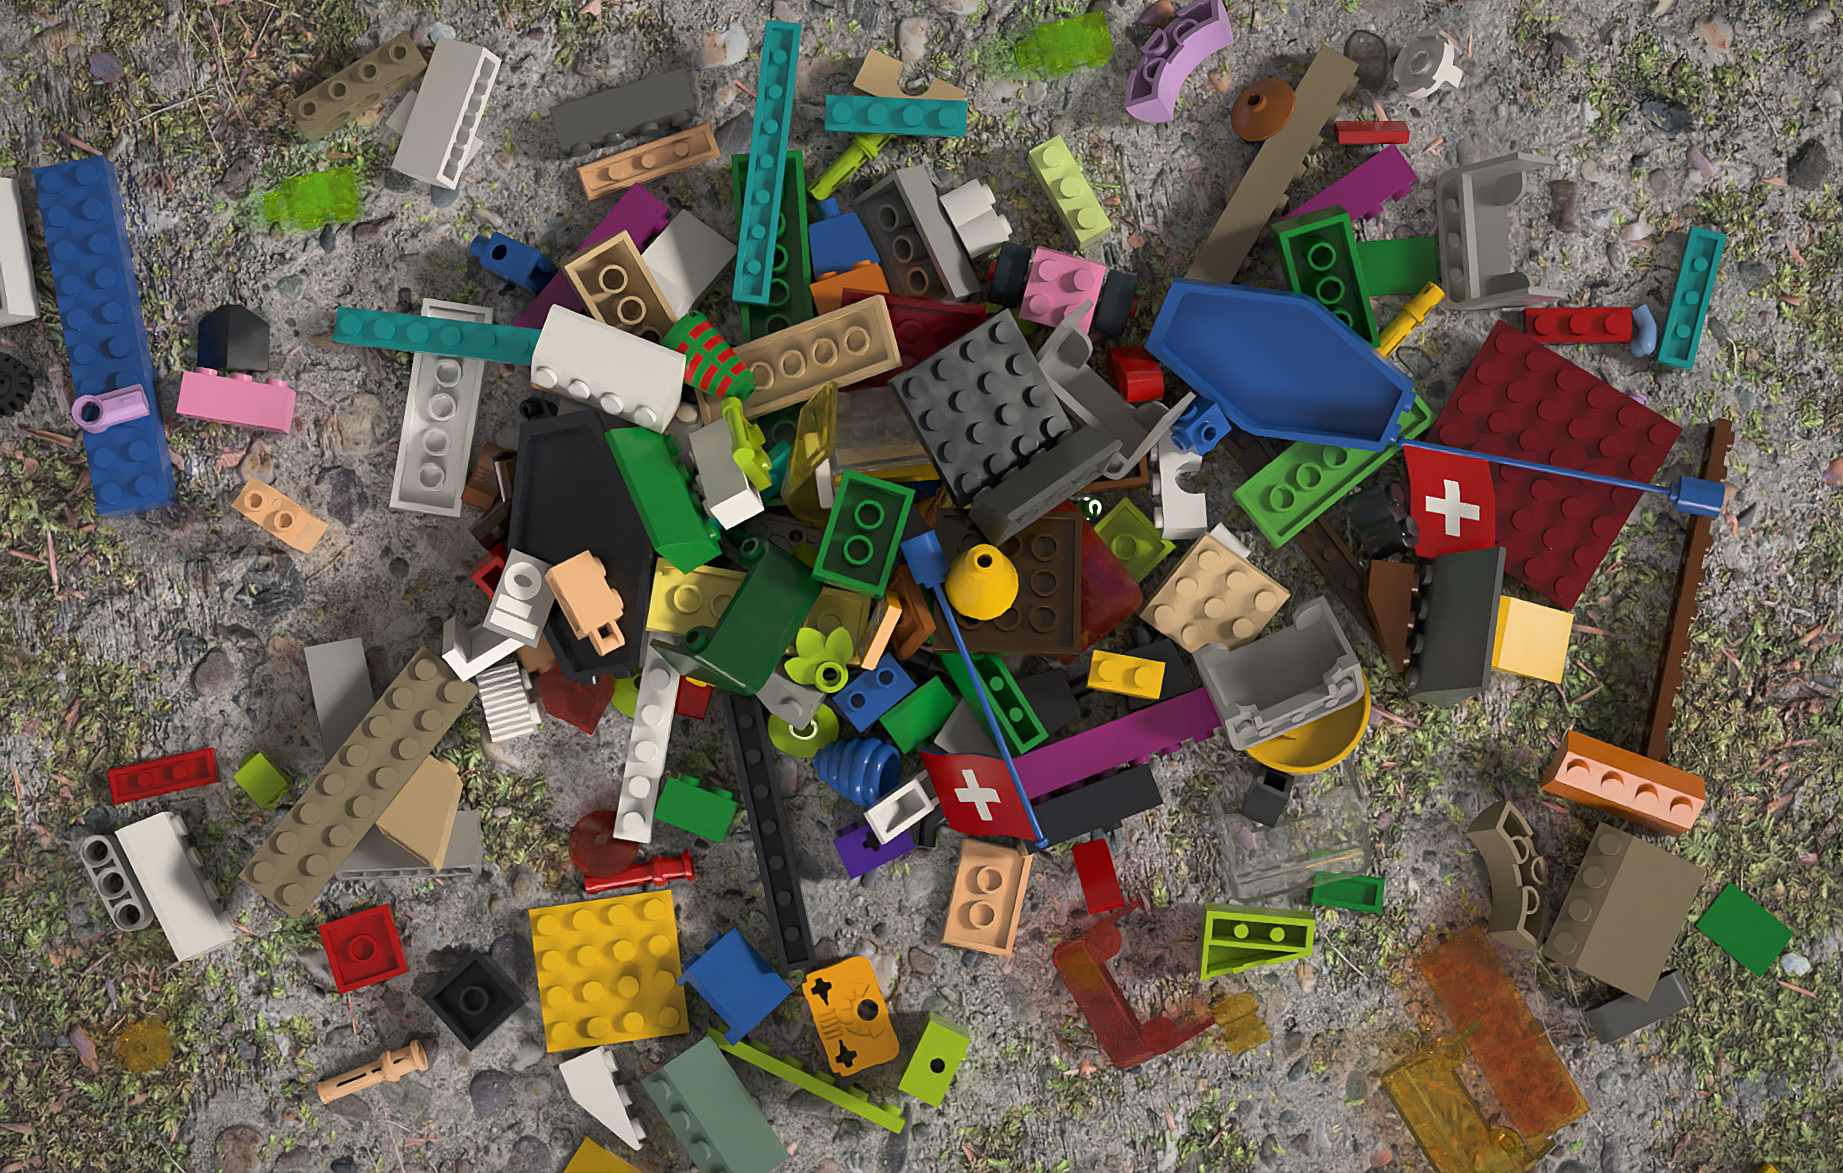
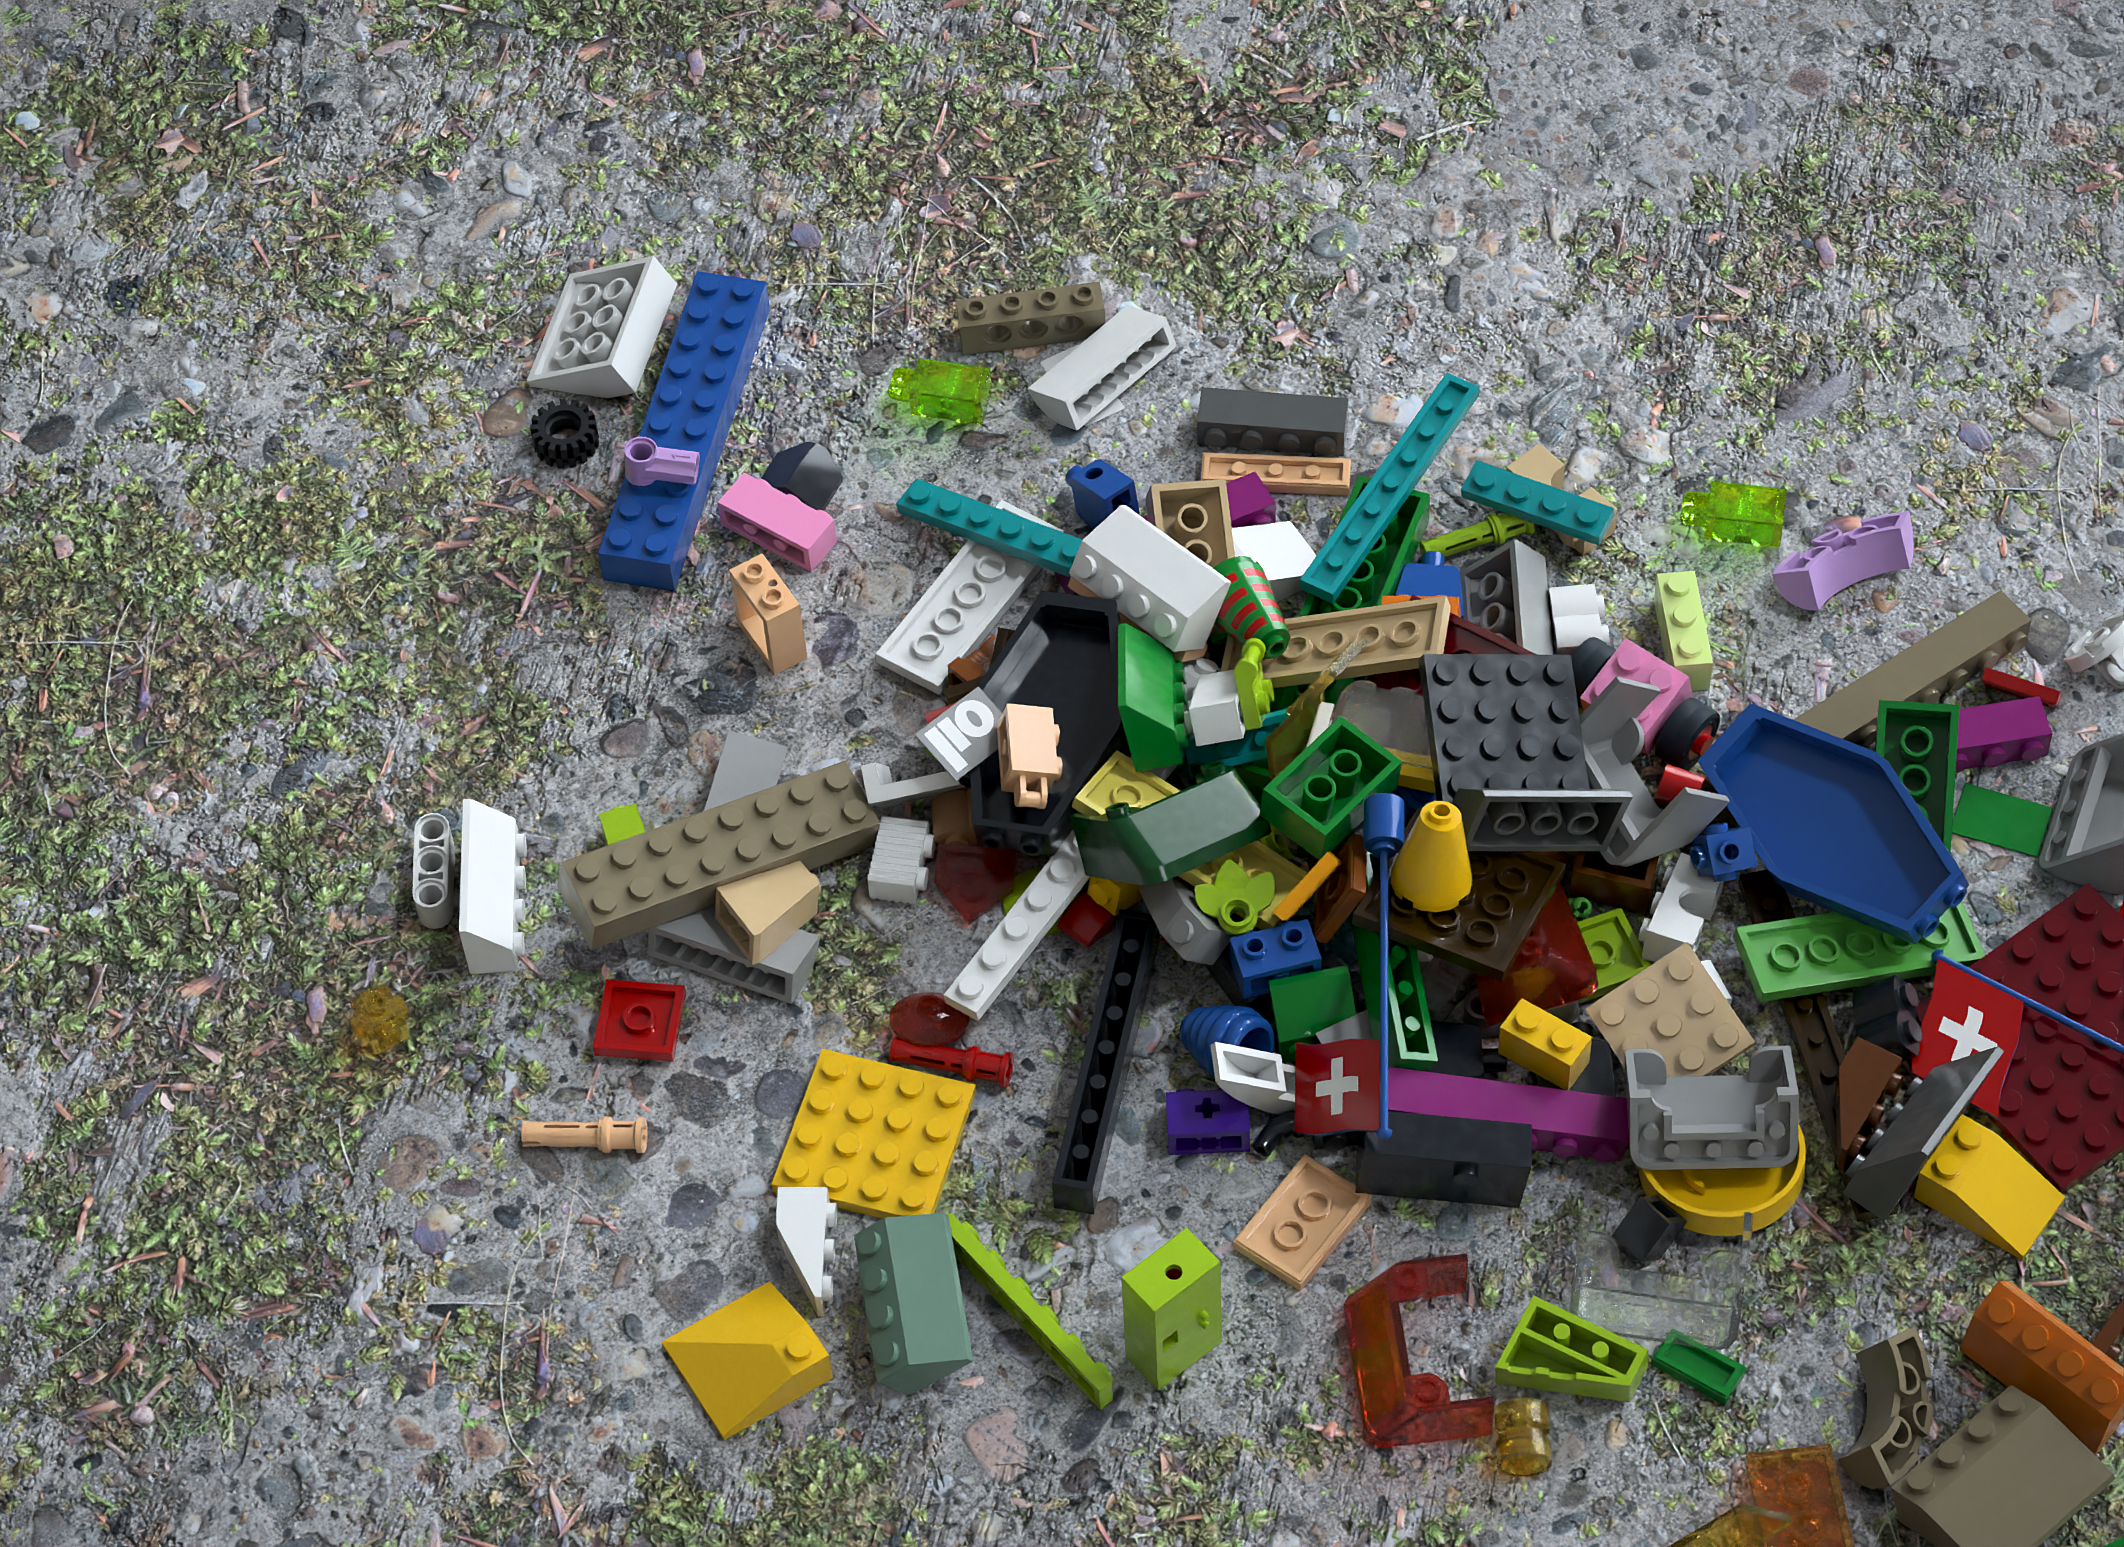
camera: 30 degrees right, 30 degrees down
(163, 776) = (534, 803): red tile -> none
(476, 998) = (727, 1099): black brick -> none
(697, 809) = (1041, 1011): green brick -> none
(735, 982) = (1001, 1185): blue panel -> none
(805, 743) = (1168, 983): lime dish -> none
(839, 1019) = (1095, 1265): light orange axle -> none
(1097, 876) = (1430, 1230): red slope -> none
(1262, 109) = (1914, 627): dark orange dish -> none
(1410, 317) = (2000, 859): yellow pin -> none

